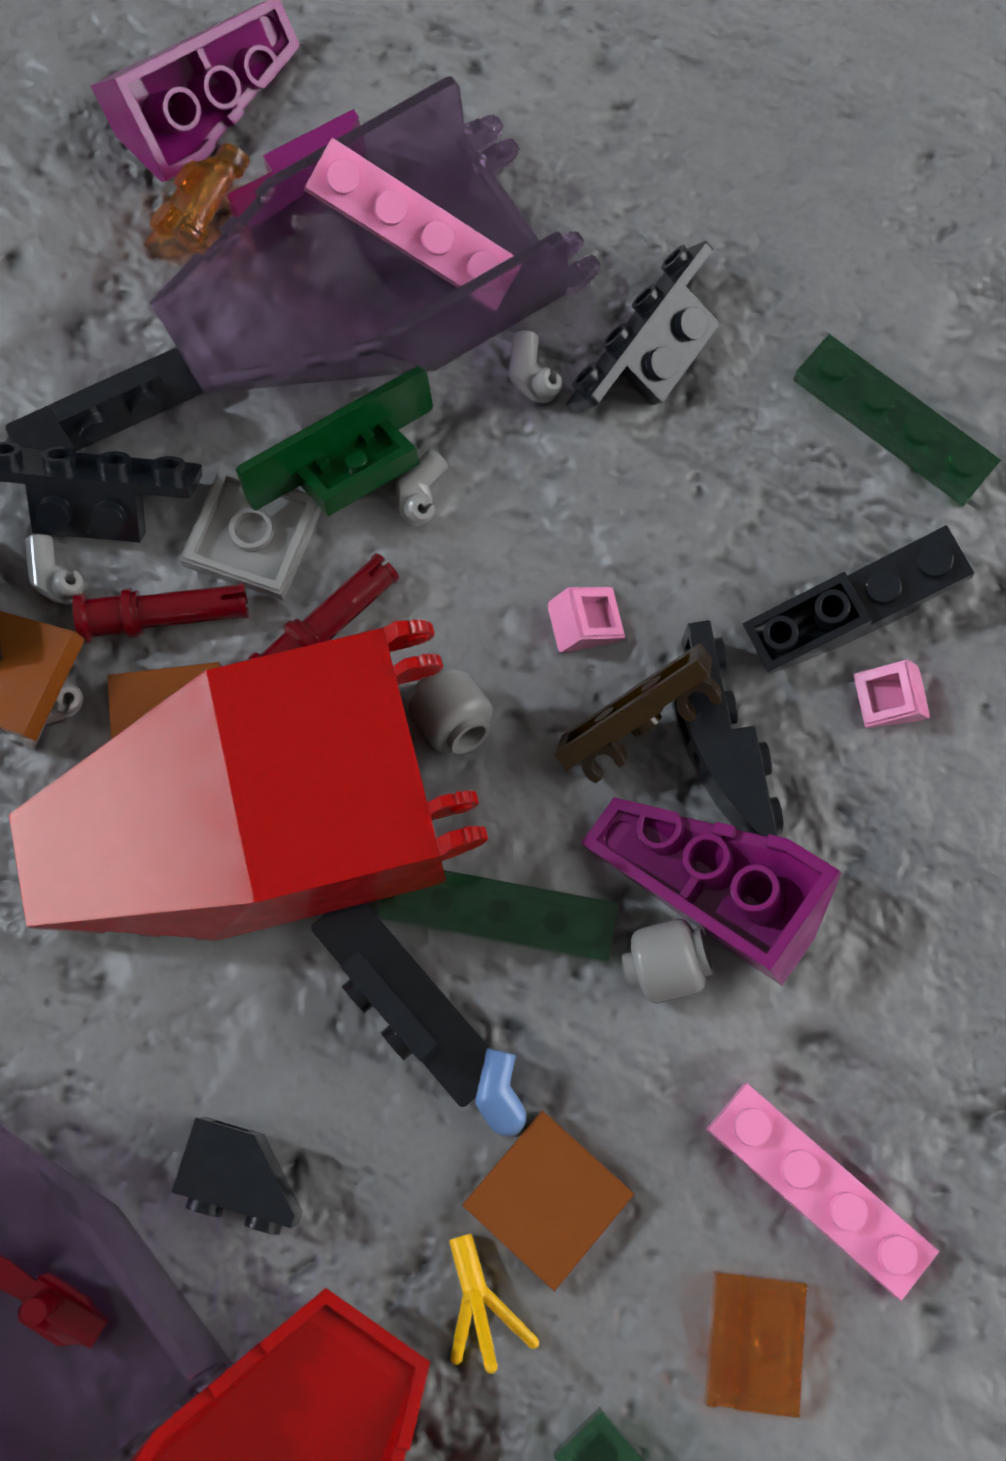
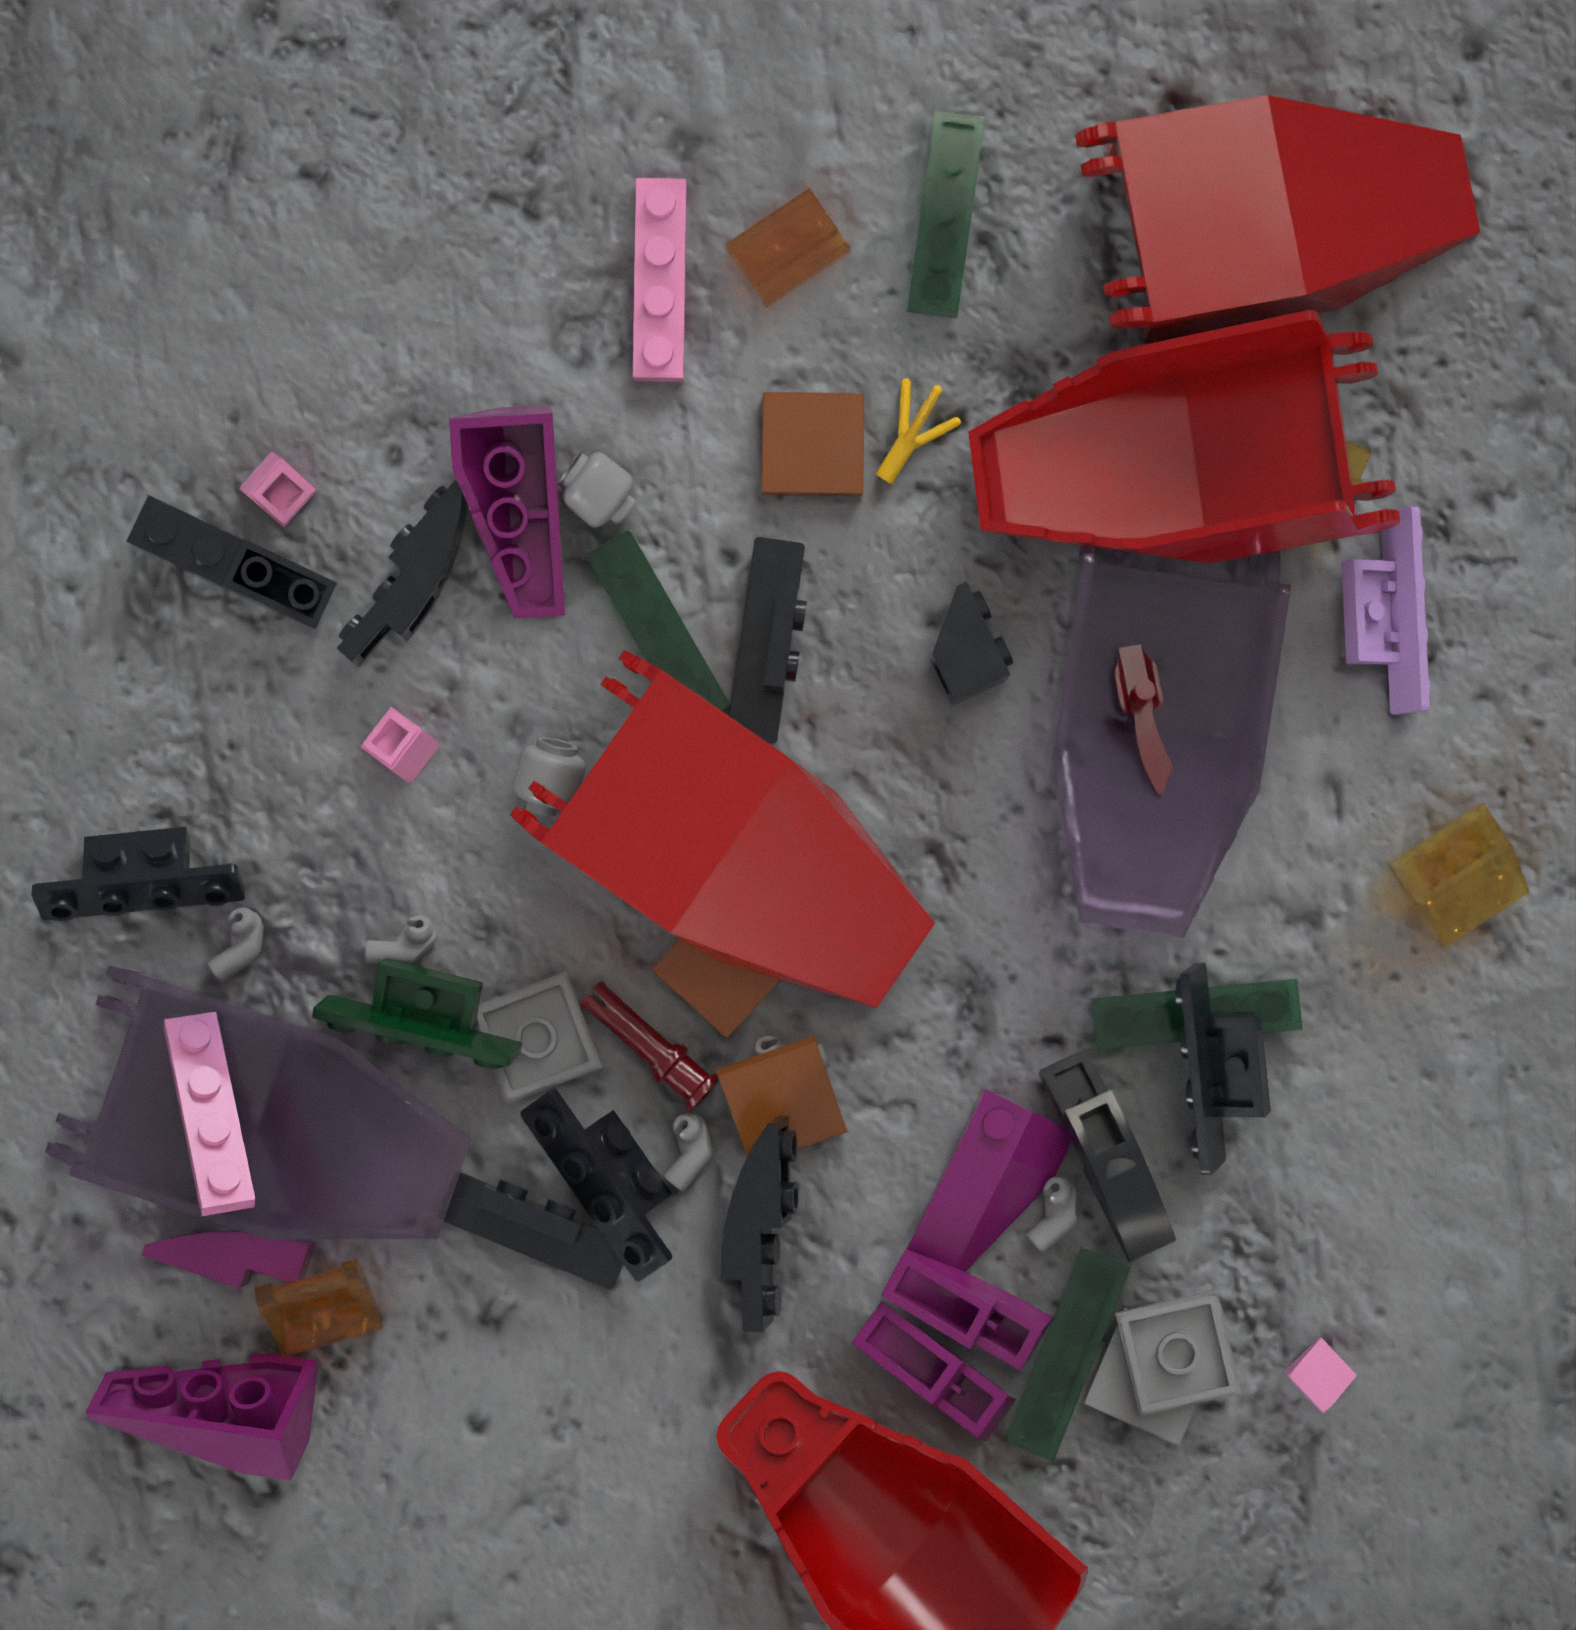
camera: 130 degrees left, 10 degrees up
(337, 609) = (585, 923): dark red pin -> none
(496, 1097) = (778, 527): medium blue arm -> none
(638, 712) = (445, 643): dark brown plate -> none
(896, 420) = (55, 649): clear green plate -> none

